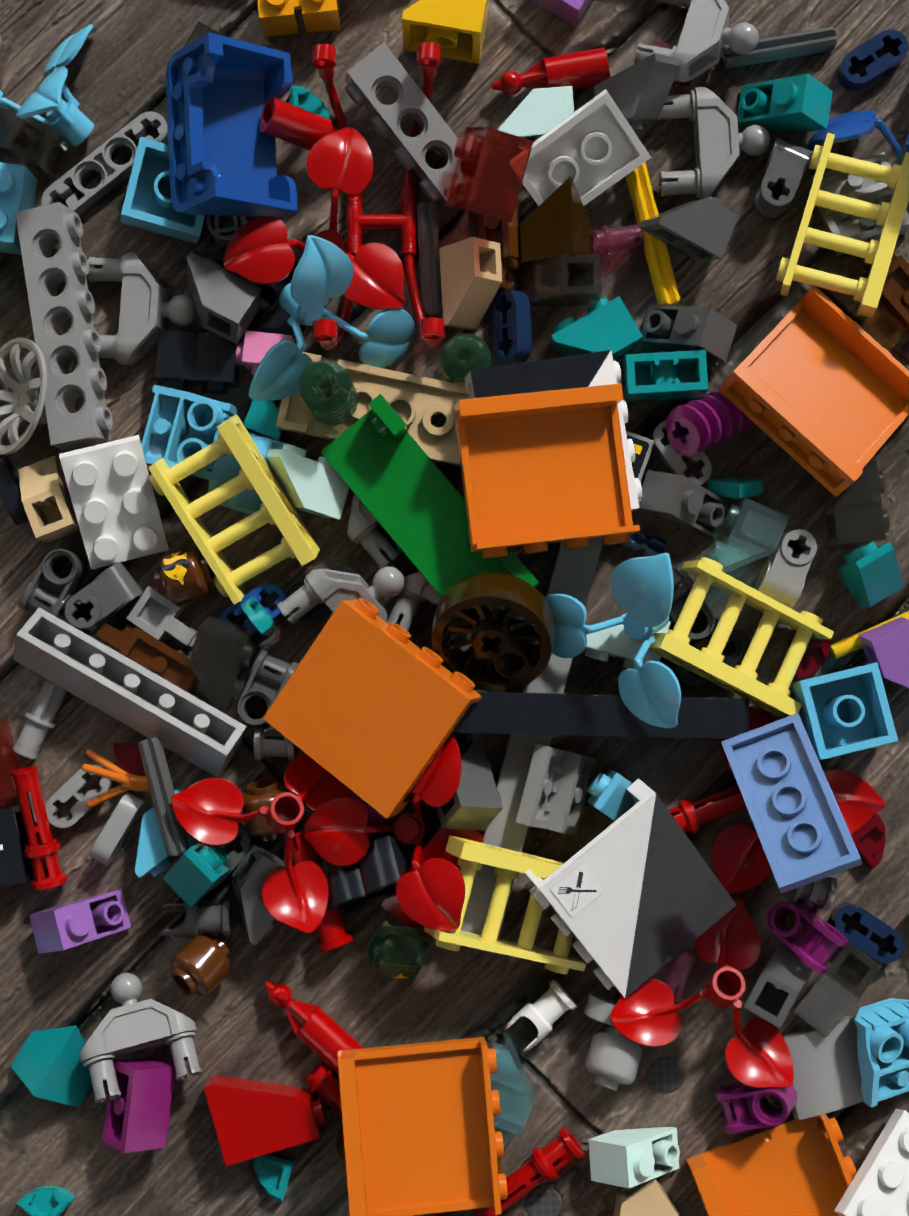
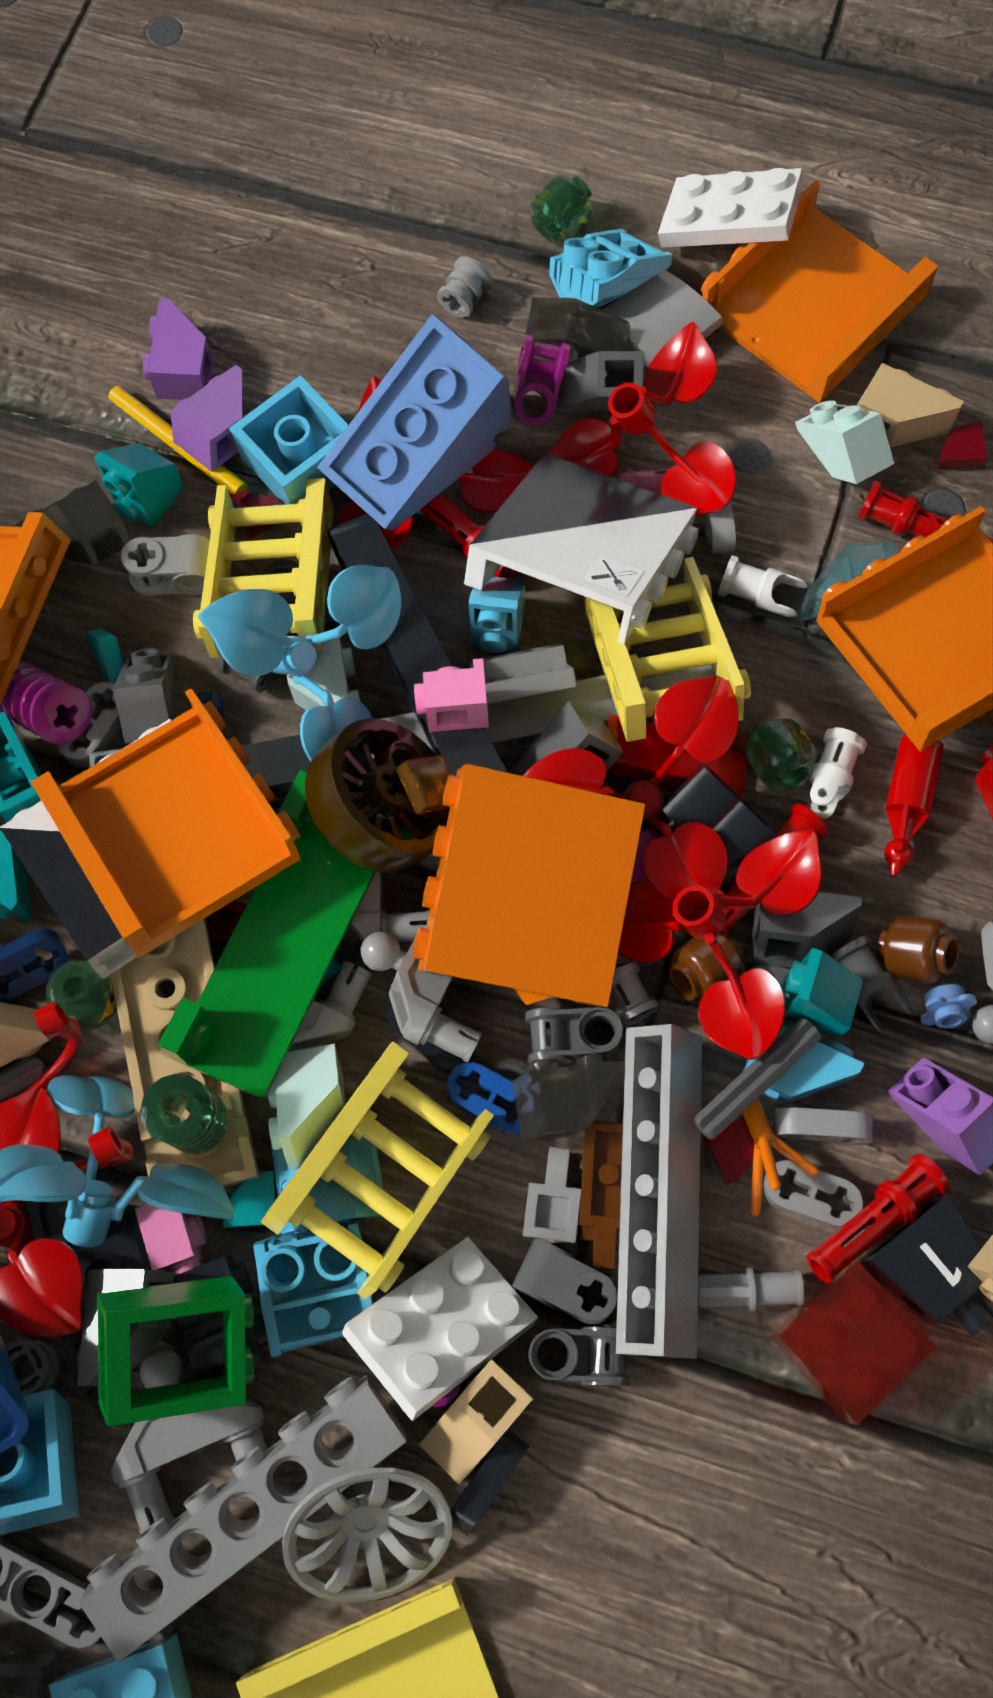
camera: 115 degrees left, 15 degrees down
(153, 963) = (947, 1006): none -> medium blue plate
(184, 576) = (488, 1196): reddish brown head -> none
(204, 327) = (123, 1307): none -> green window
(258, 616) = (495, 1074): teal tile -> none
(326, 1085) = (960, 761): red pin -> none
(358, 978) = (832, 774): none -> white piece
(484, 669) = (425, 782): none -> clear orange tile
(539, 720) = (453, 698): none -> bright pink brick
(613, 1059) = (763, 500): light grey head -> none
(749, 1108) = (735, 357): magenta piece -> none
(750, 536) = (152, 614): clear light blue slope -> none
(871, 925) = (500, 340): dark blue beam -> none

